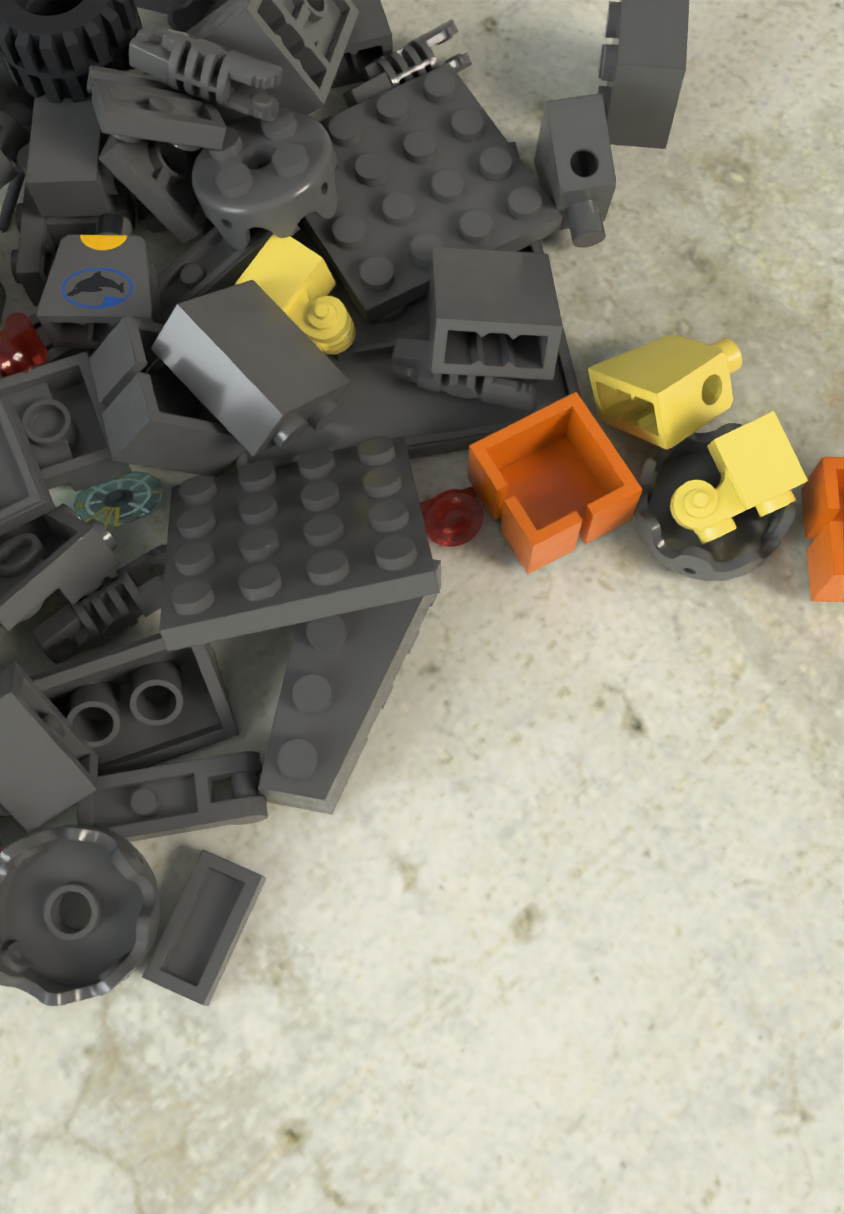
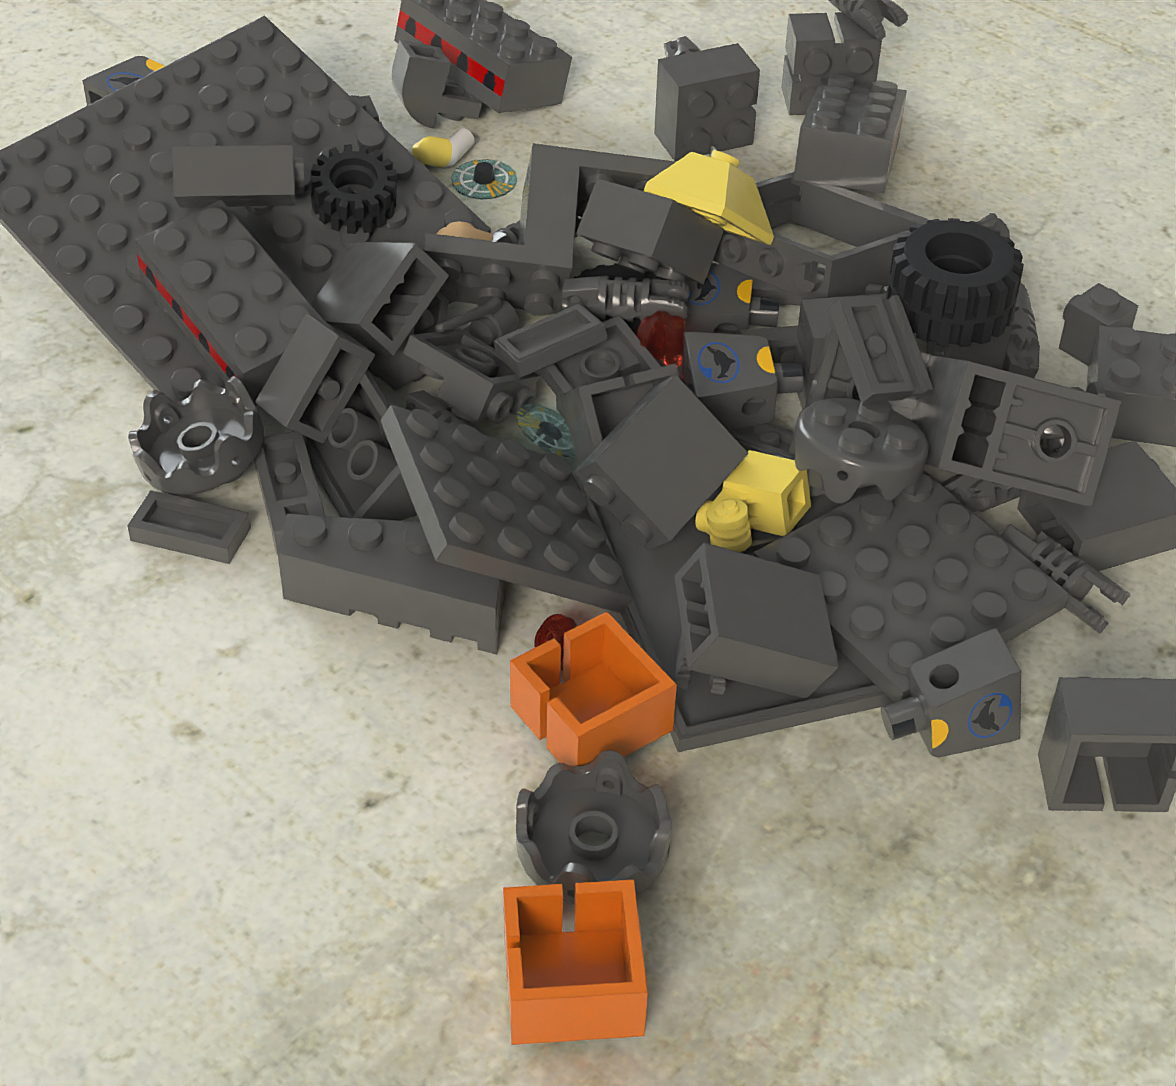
camera: 80 degrees right, 25 degrees down
(207, 71) = (920, 369): dark grey hinge -> none
(665, 387) = (710, 778): light yellow torso -> none
(754, 470) = (610, 821): light yellow brick -> none

